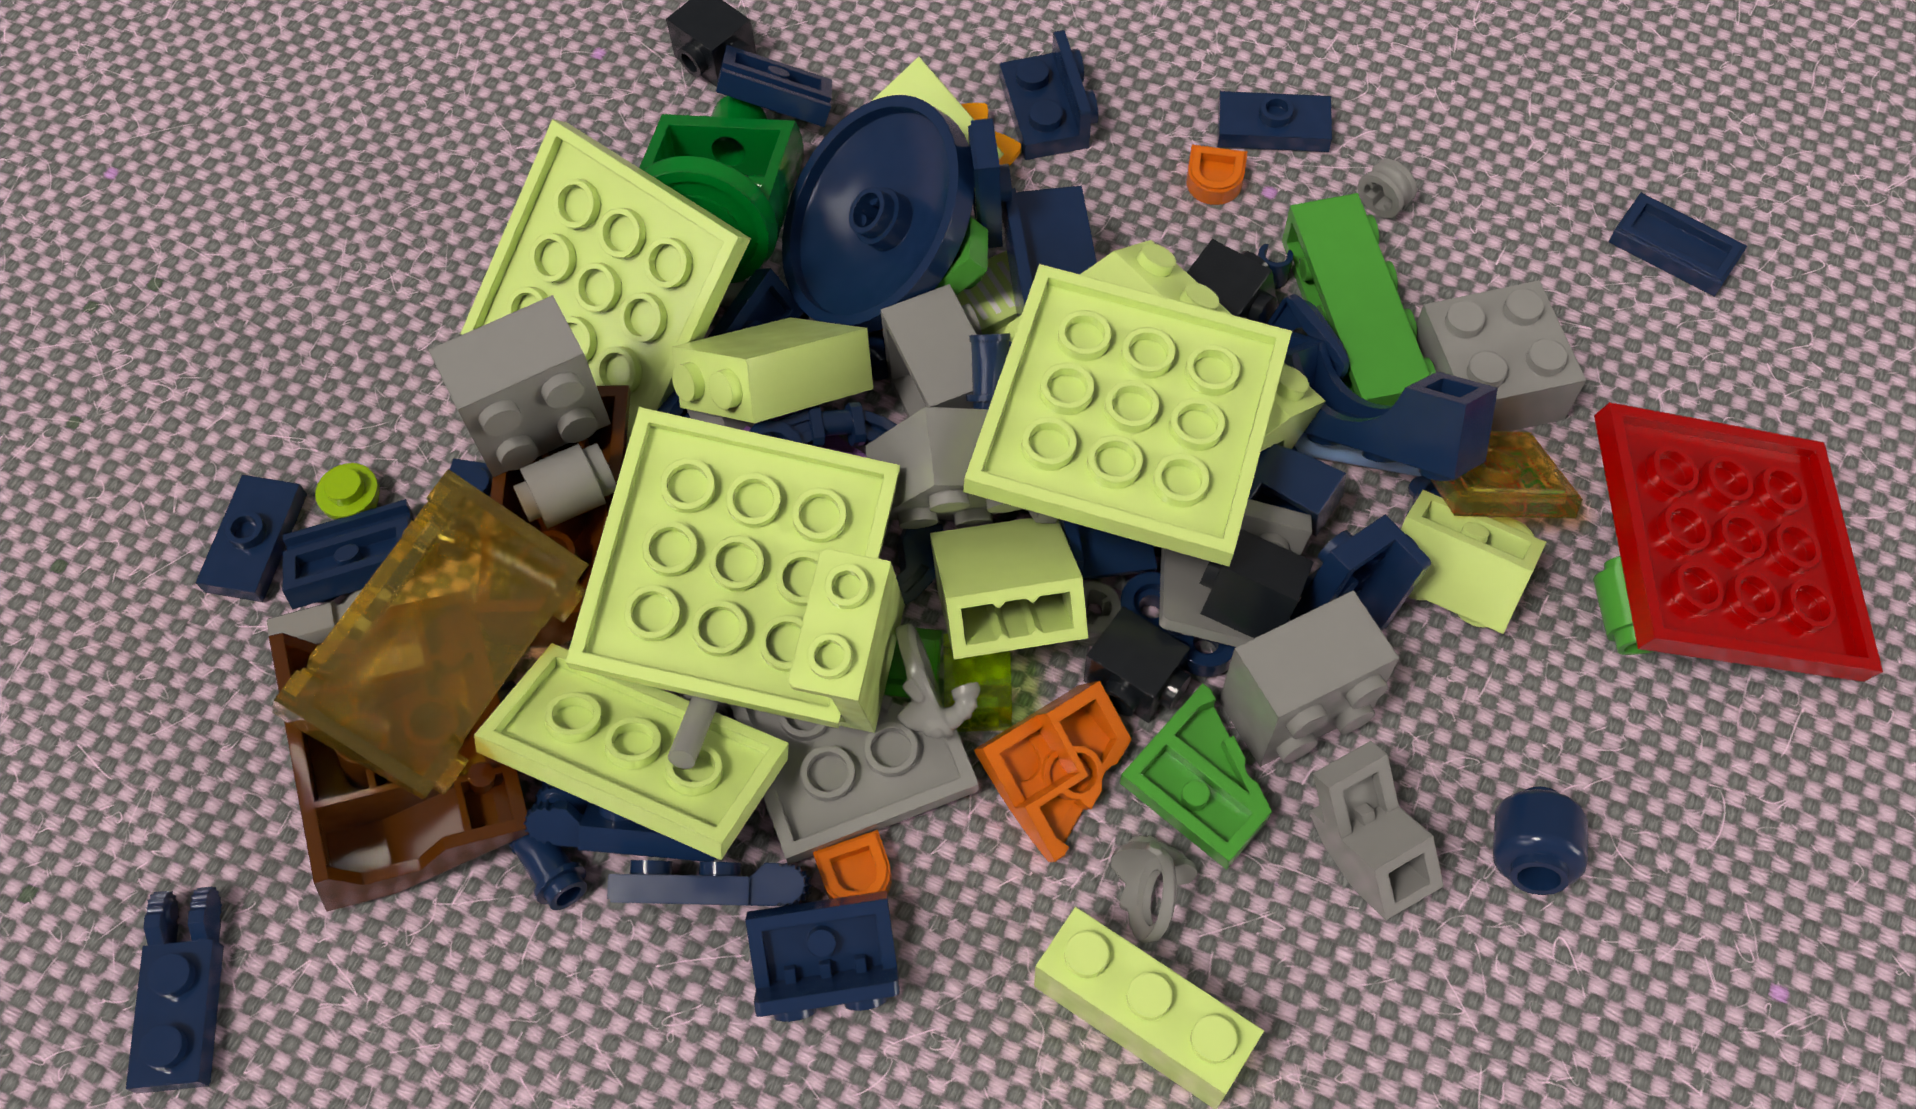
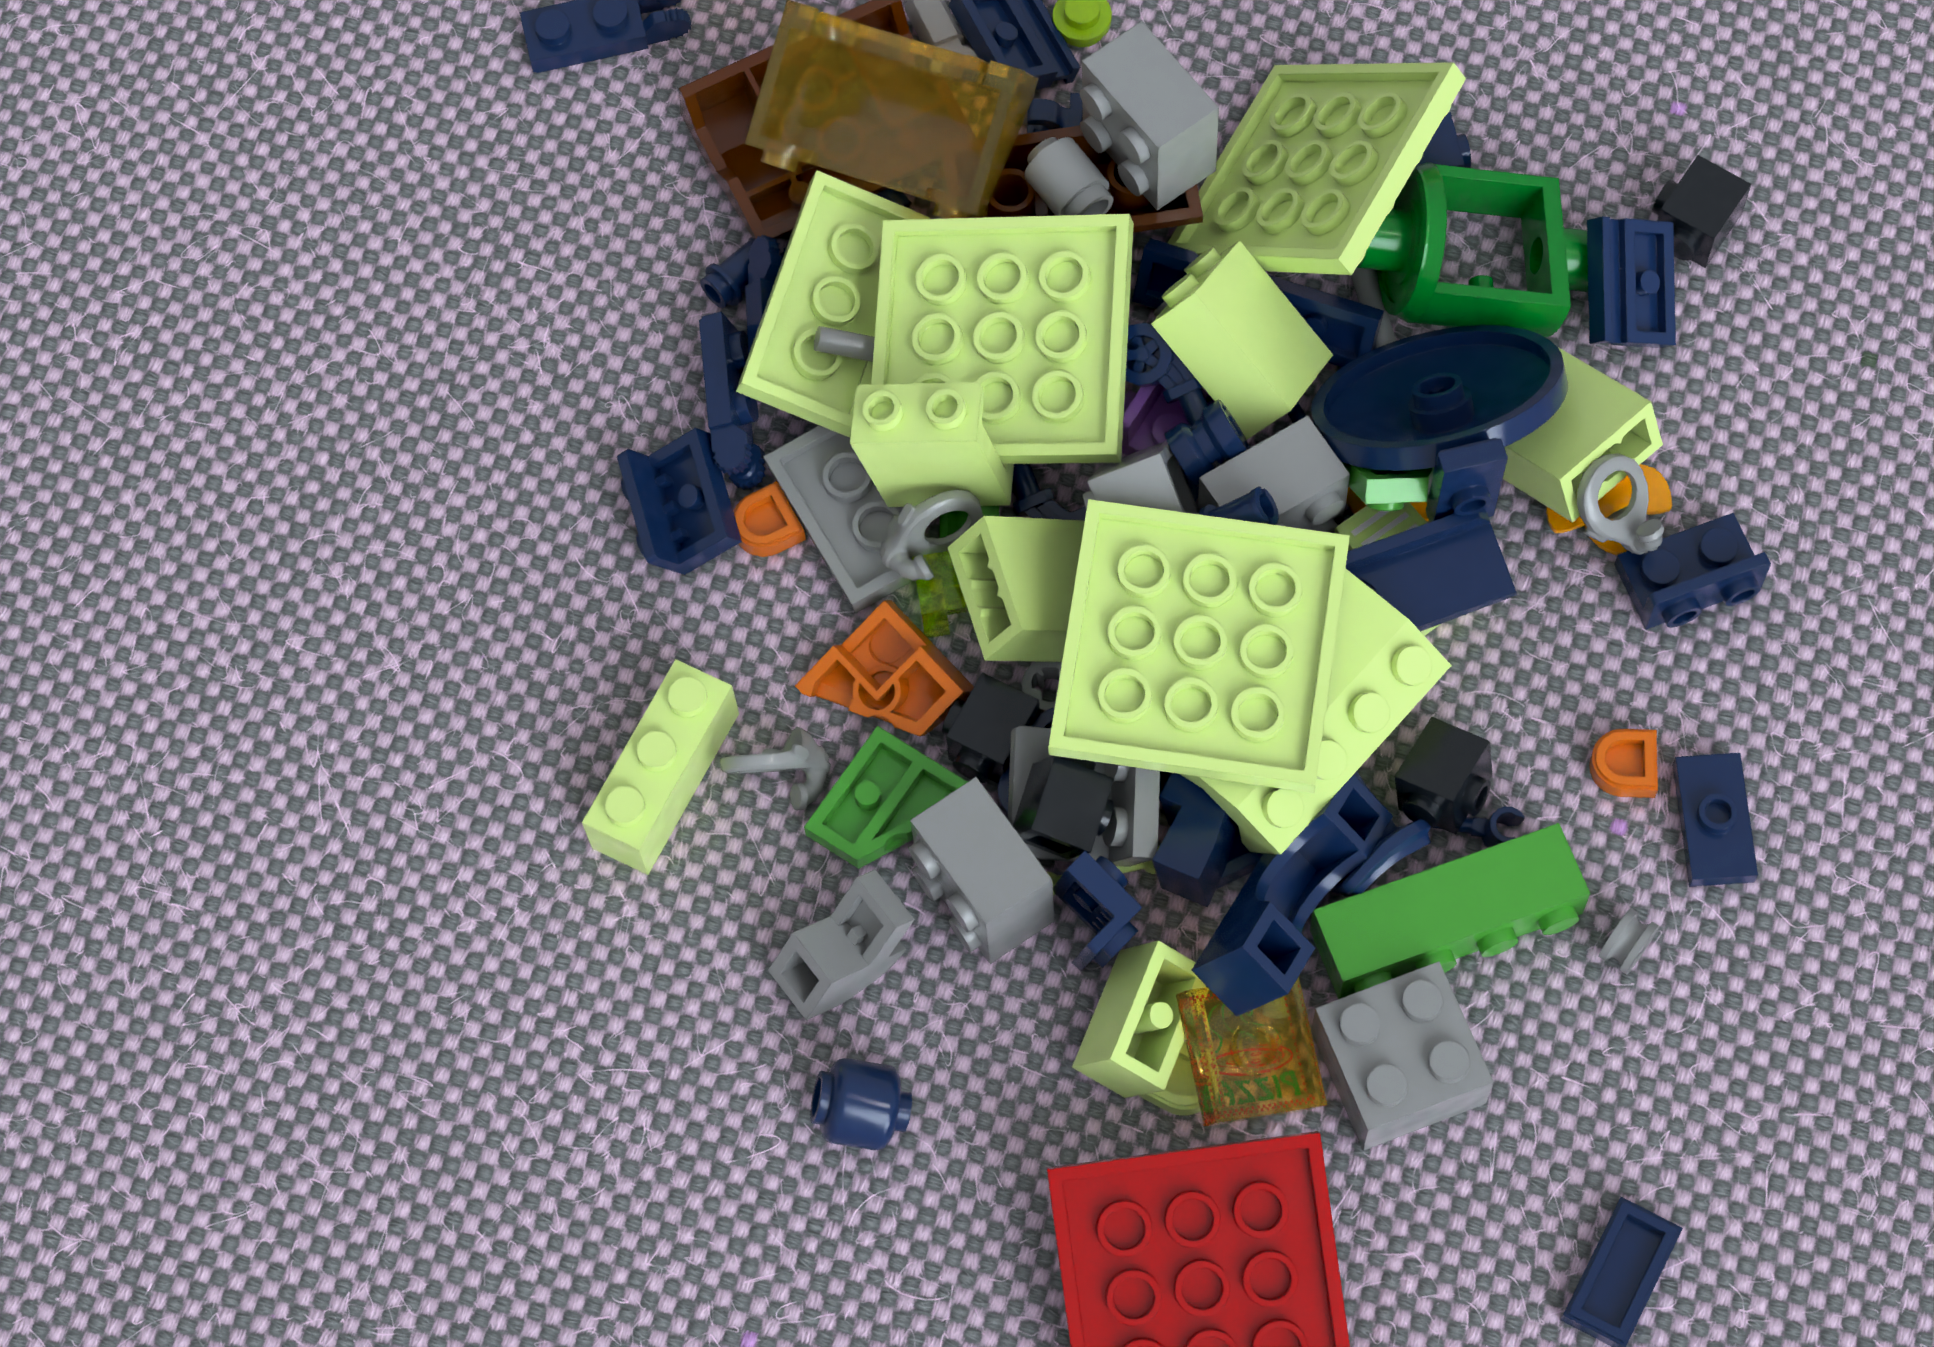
camera: 85 degrees right, 5 degrees up
(881, 399) = (1213, 439): none -> dark blue wheel
(1008, 124) = (1627, 524): none -> light grey piece

